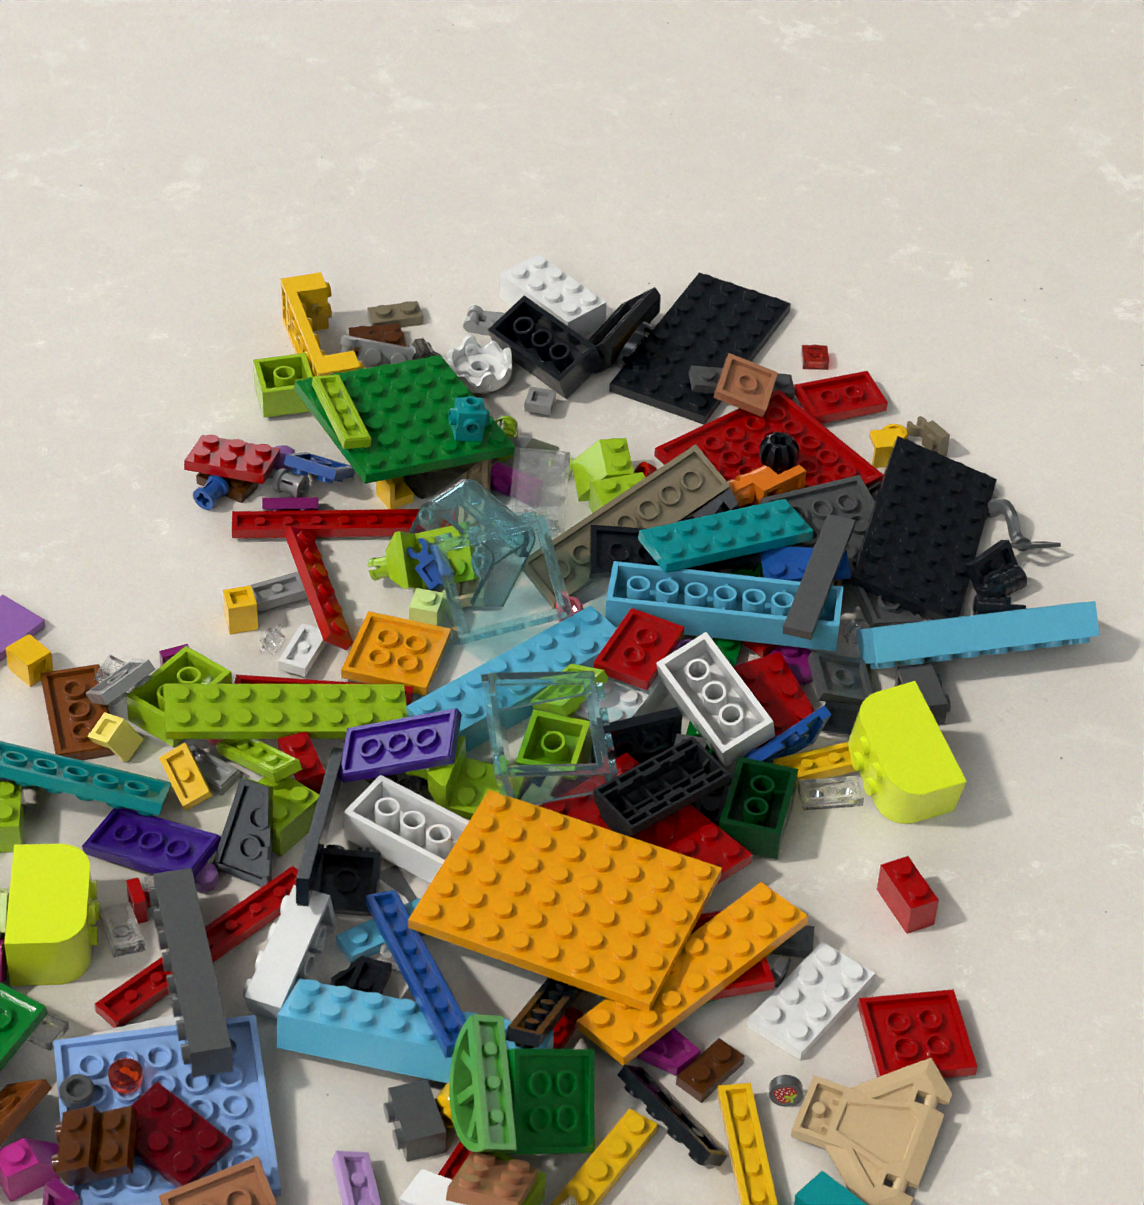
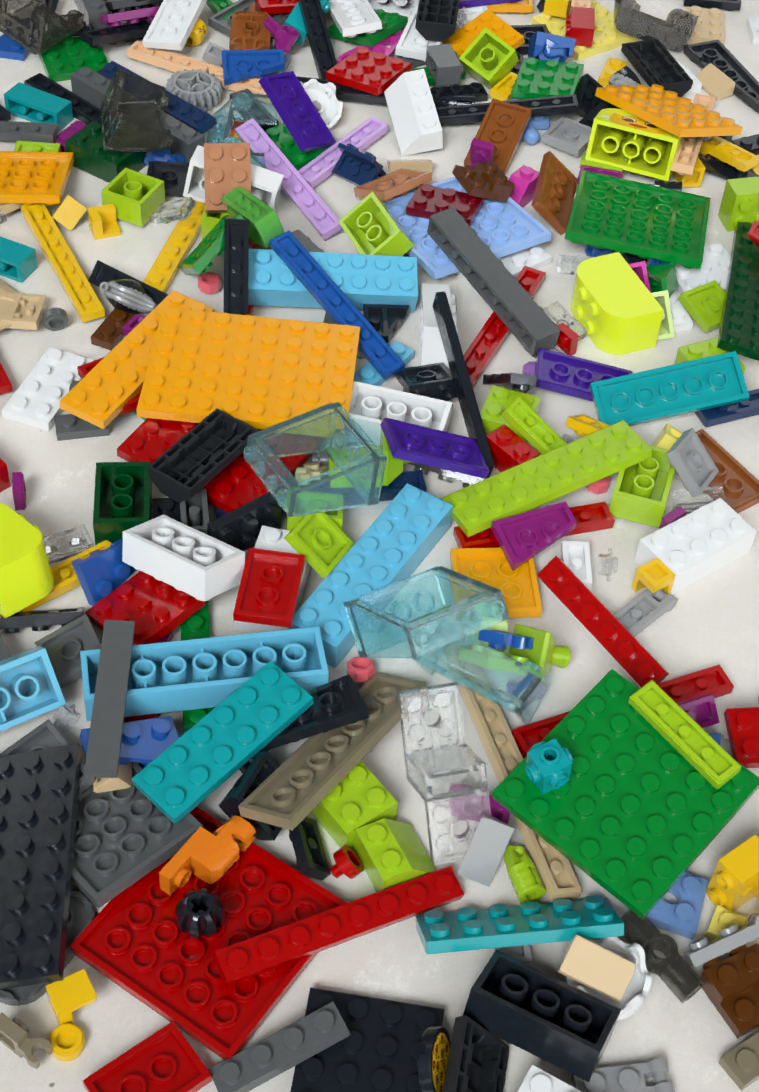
camera: 160 degrees right, 5 degrees up
(77, 1091) = (516, 210): dark grey tile -> none
(125, 1075) = (493, 223): clear red tile -> none
(153, 626) = (698, 543): none -> white brick
(301, 1102) = (375, 229): none -> lime brick
(345, 668) = (532, 532): none -> magenta wing
(487, 359) = (597, 968): none -> tan slope
(541, 401) = (517, 925): none -> teal plate
(679, 431) = (336, 926): none -> red plate
(689, 1093) = (128, 296): none -> light grey hat
(745, 385) = (268, 1014): nougat plate -> none
(868, 860) = (19, 490): none -> magenta tile

